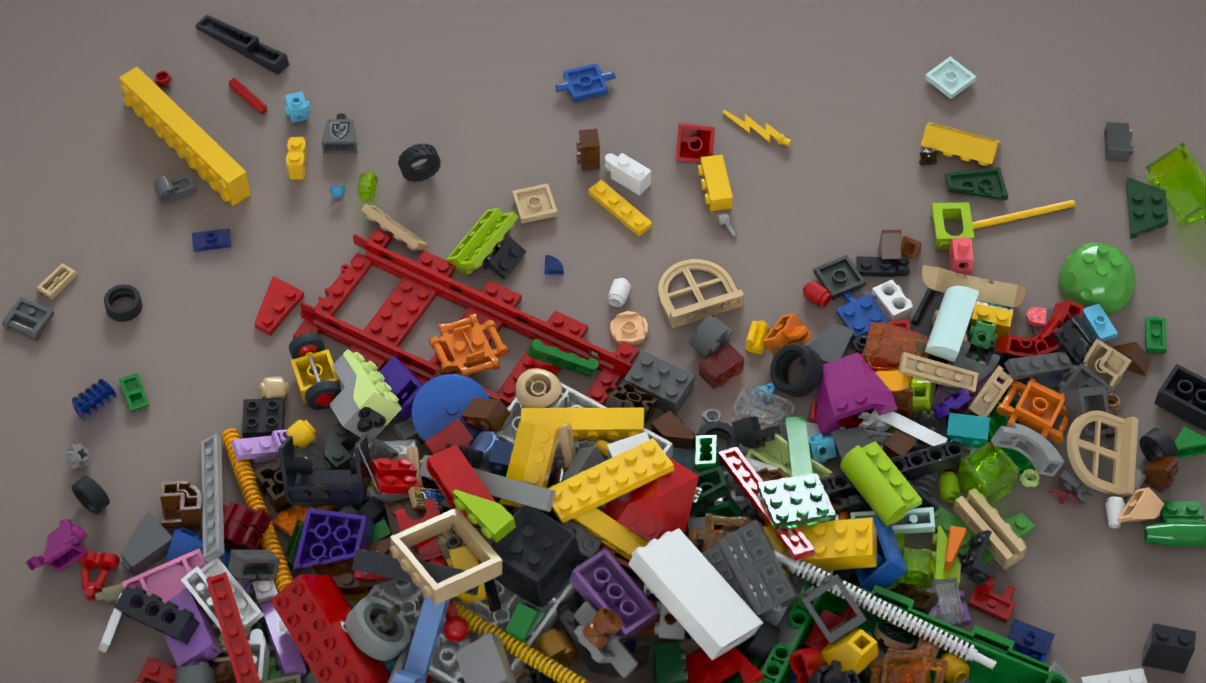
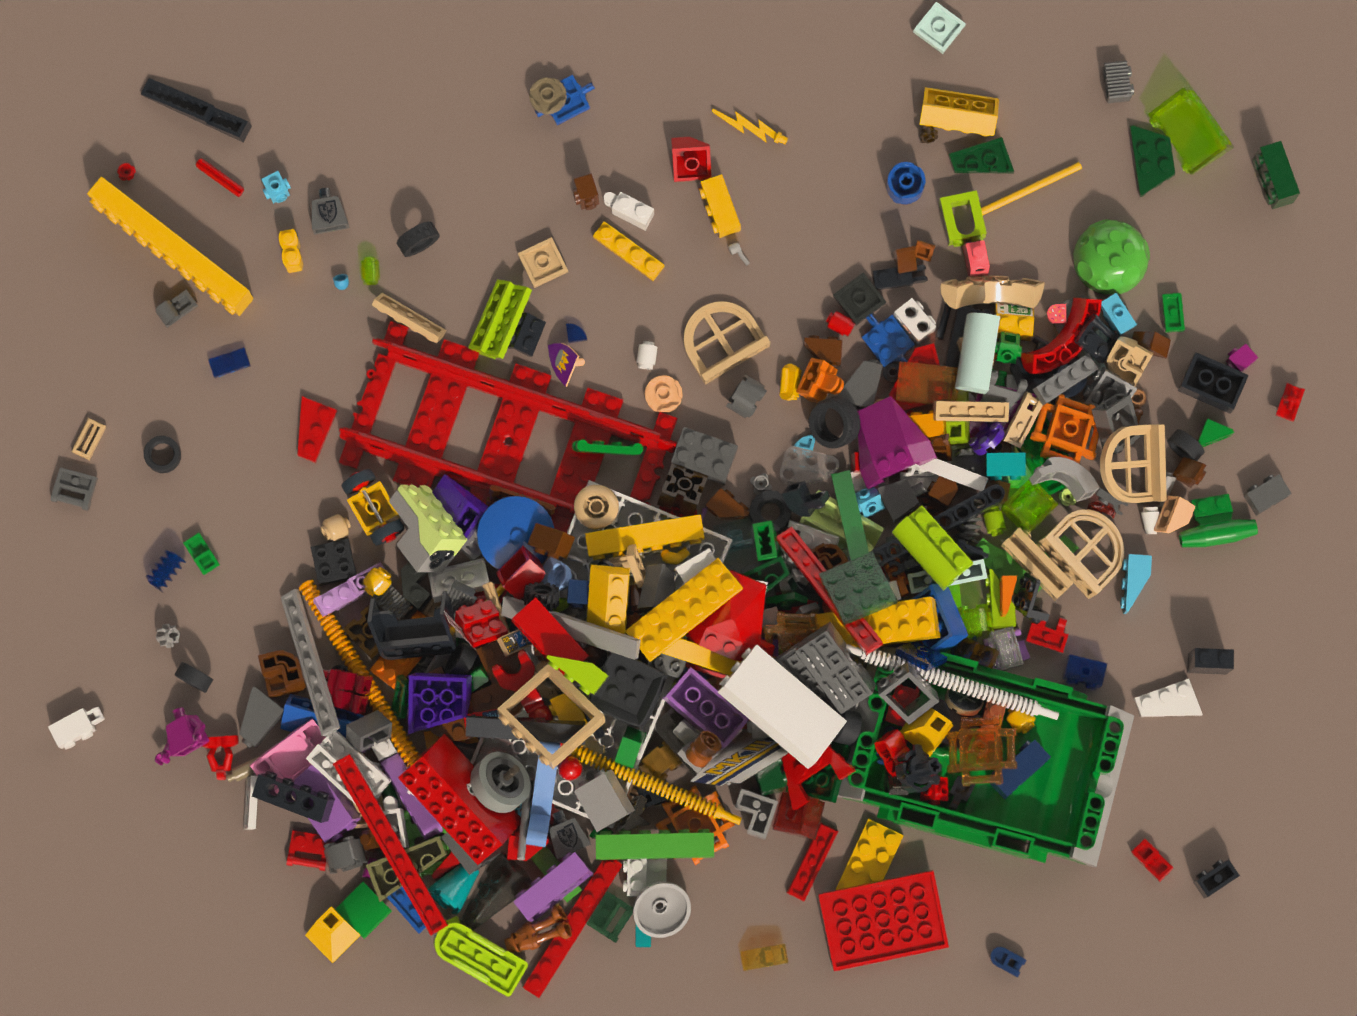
camera: 10 degrees left, 25 degrees up
(468, 346) = (514, 453): orange brick -> none
(535, 281) = (563, 361): none -> dark purple shield
(570, 73) = (547, 95): none -> dark tan tile
(721, 366) = (761, 424): clear red brick -> none
(803, 309) = (825, 349): none -> reddish brown slope
(854, 578) = (920, 655): none -> clear blue plate
(900, 188) = (912, 175): none -> blue brick
(1037, 550) = (1069, 562): none -> tan window
(1095, 561) = (1136, 575): none -> medium azure slope

